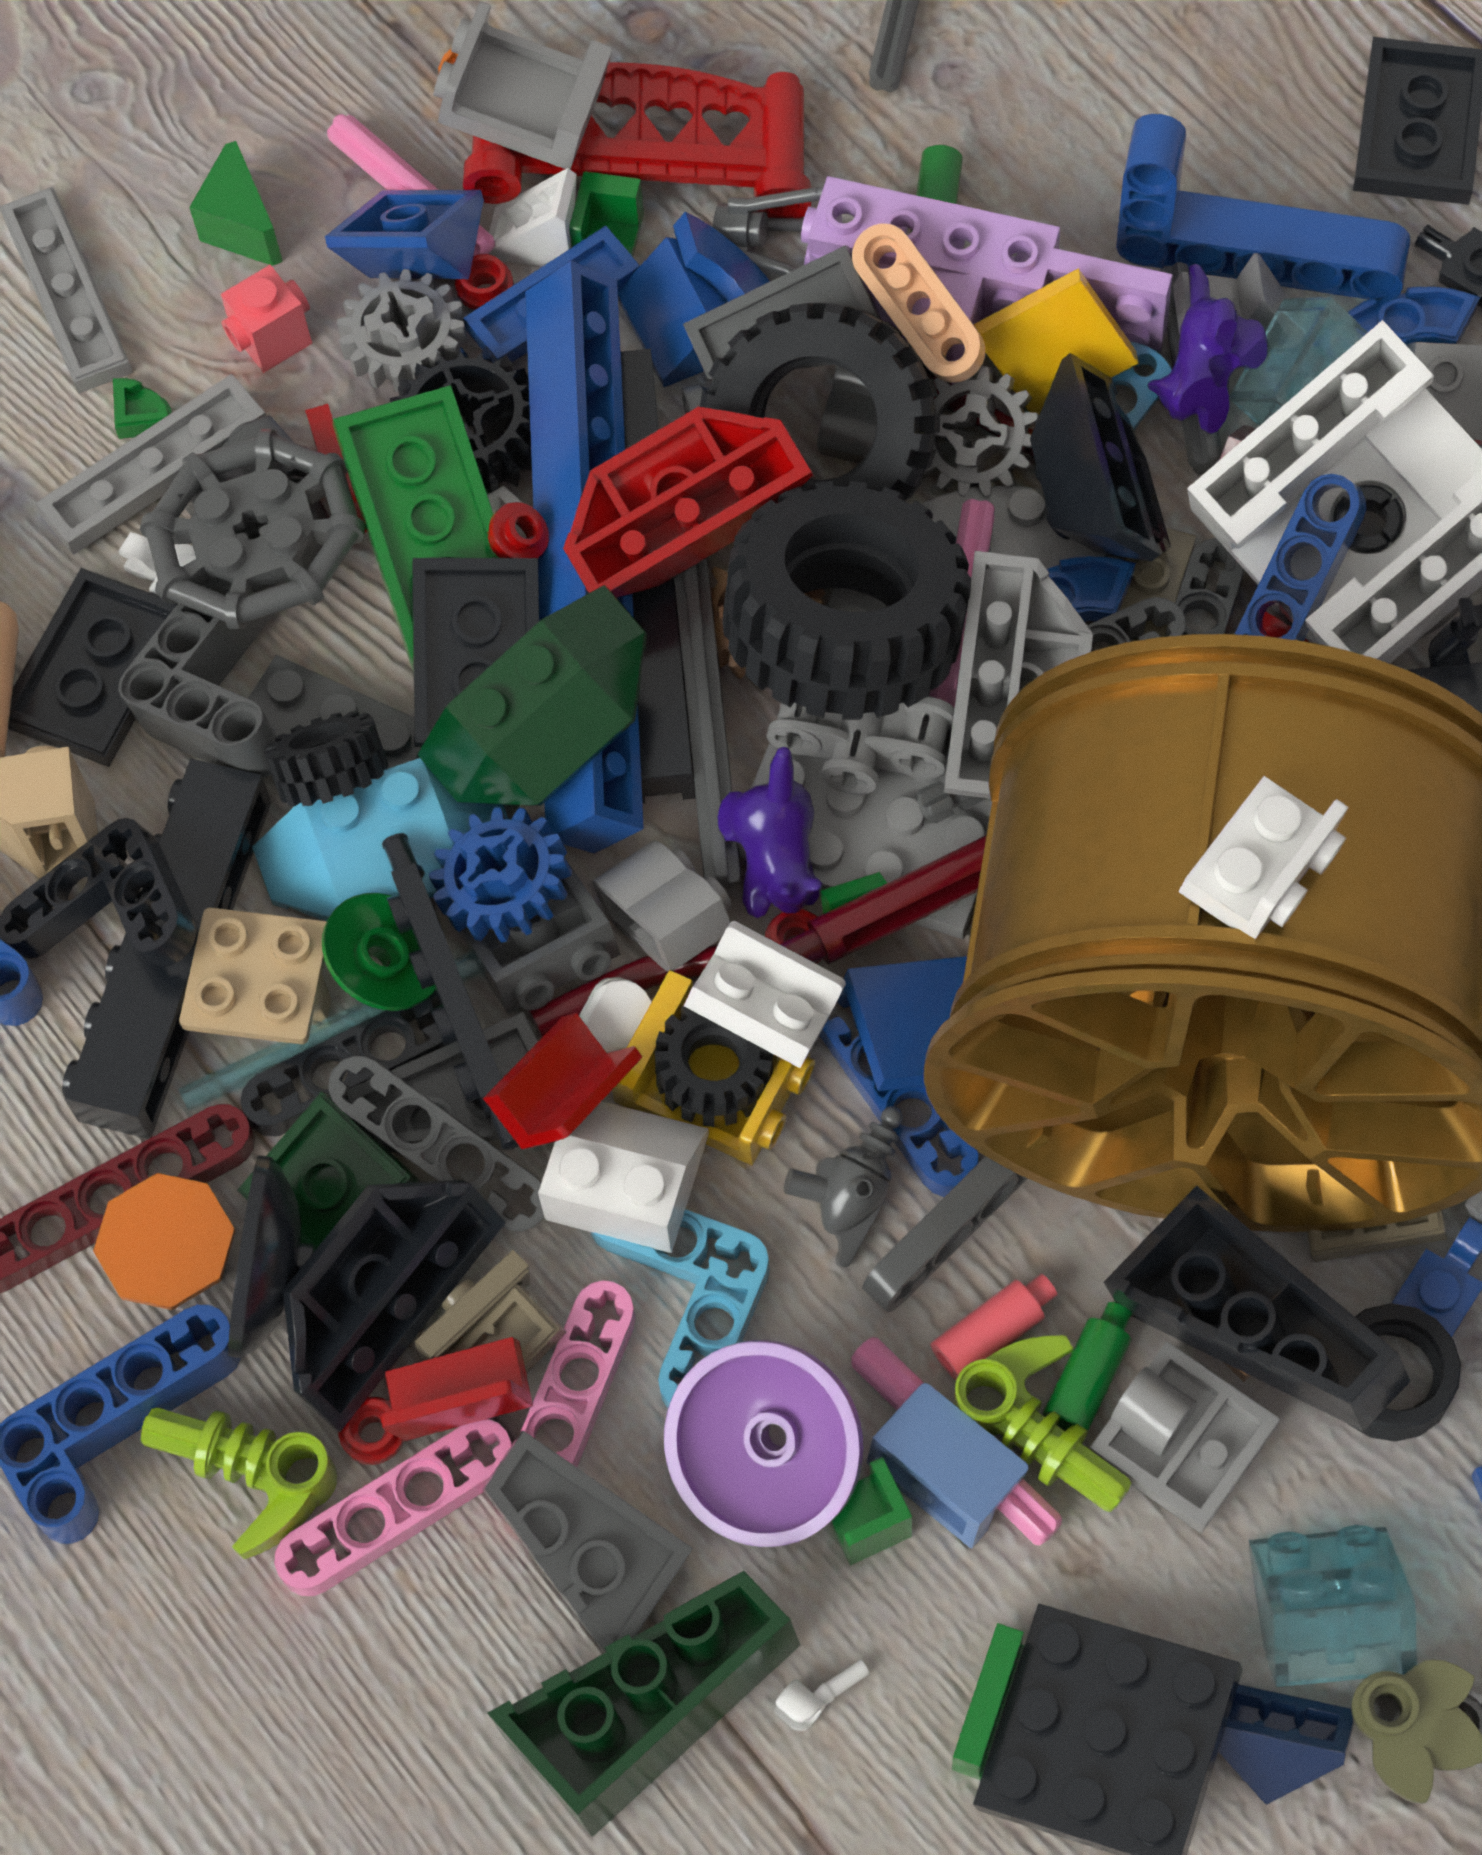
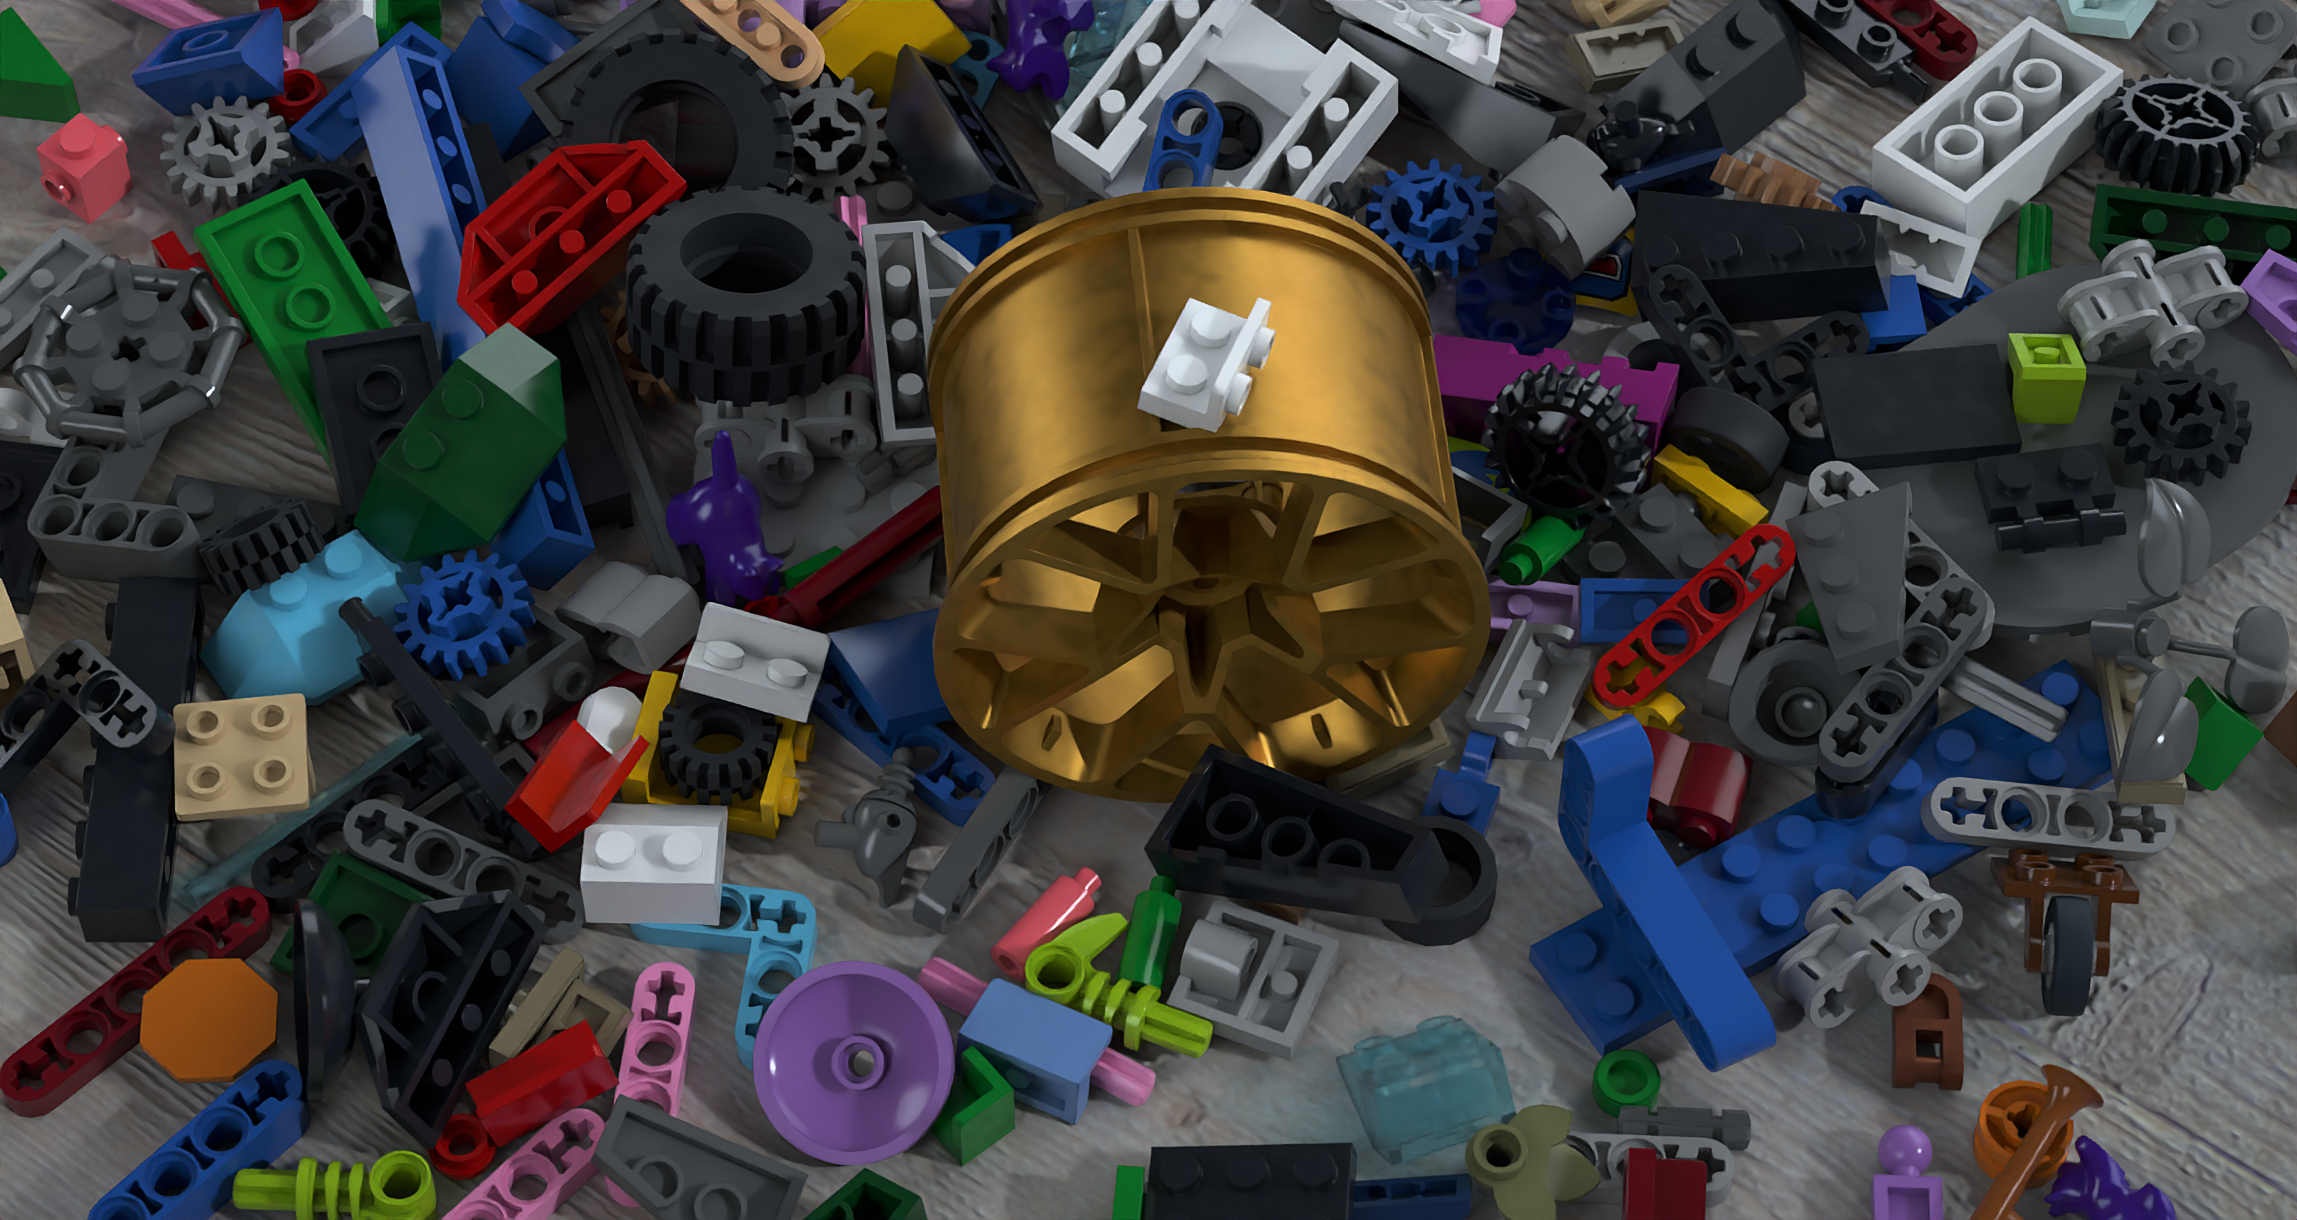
camera: 20 degrees left, 10 degrees down
(363, 929) = (354, 716): green dish -> none
(505, 539) = (401, 302): red plate -> none

